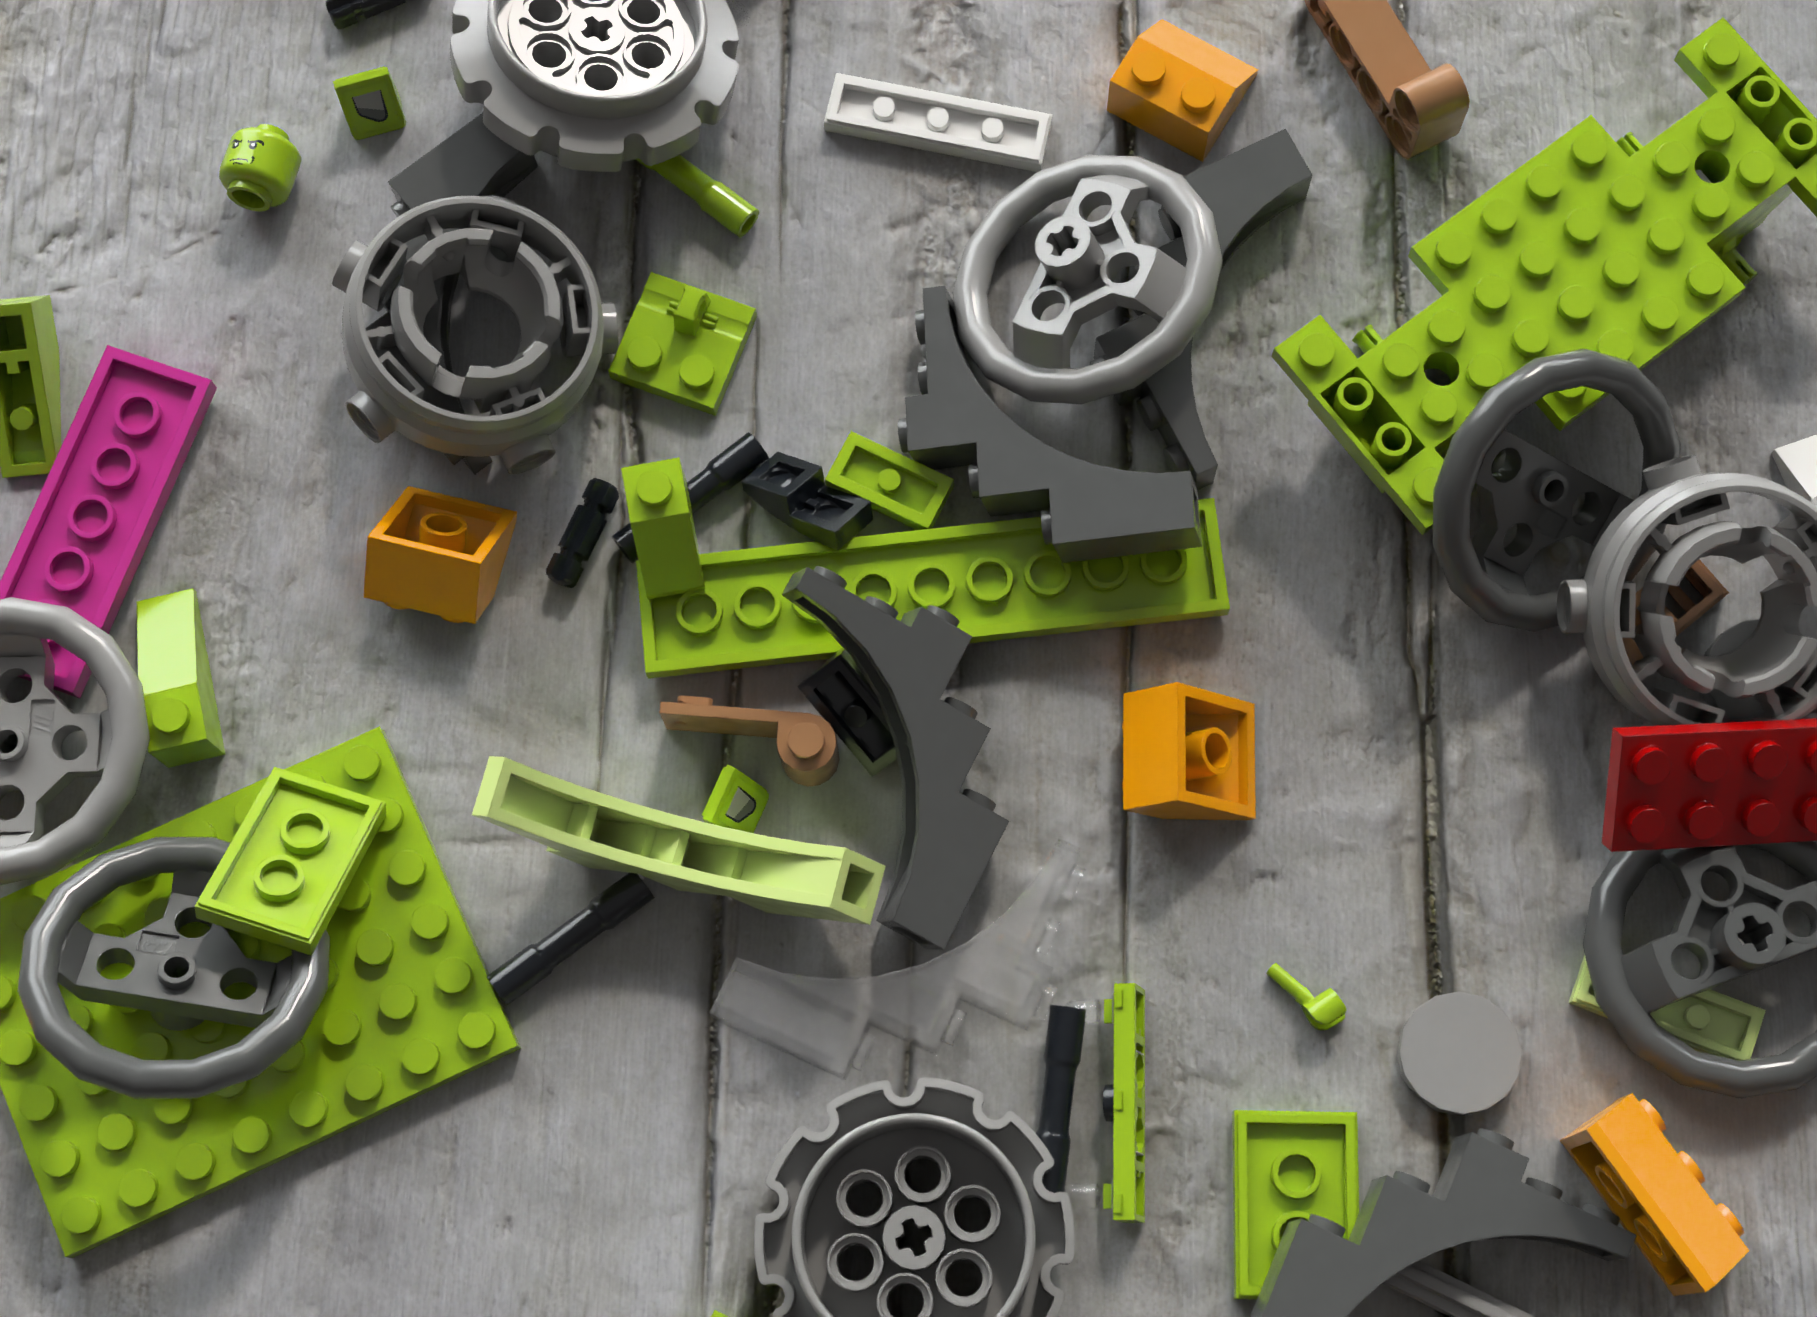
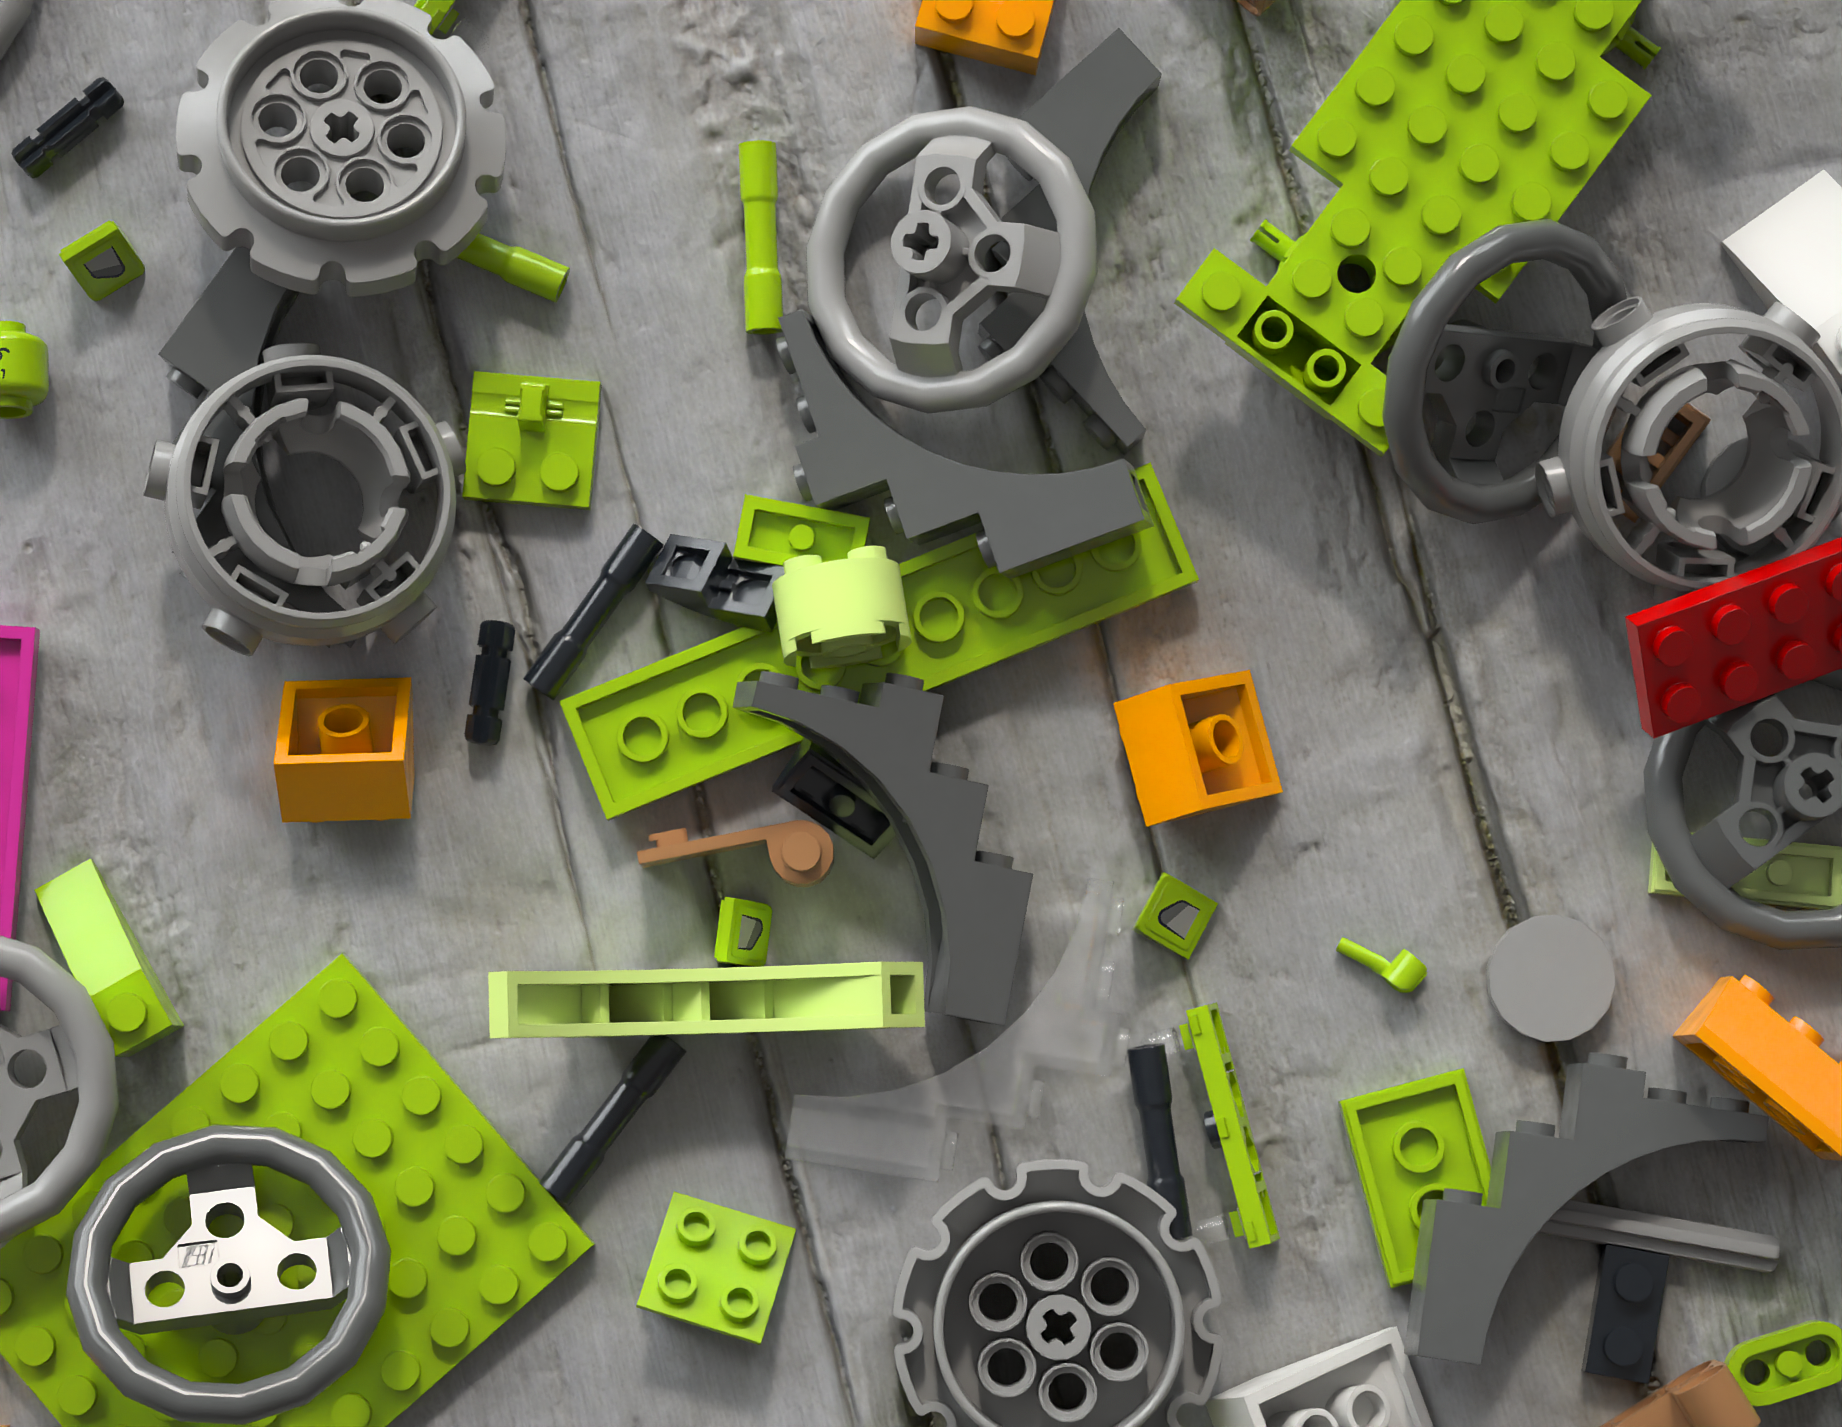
camera: 25 degrees left, 10 degrees up
(291, 861) = (307, 1128): lime tile -> none
(620, 1099) = (716, 1268): none -> lime hinge
(663, 527) = (582, 664): lime slope -> none
(903, 538) = (840, 608): none -> yellowish green brick
(937, 196) = (759, 200): none -> lime piece
(938, 122) = (734, 109): white tile -> none
(1127, 899) = (1175, 915): none -> lime slope

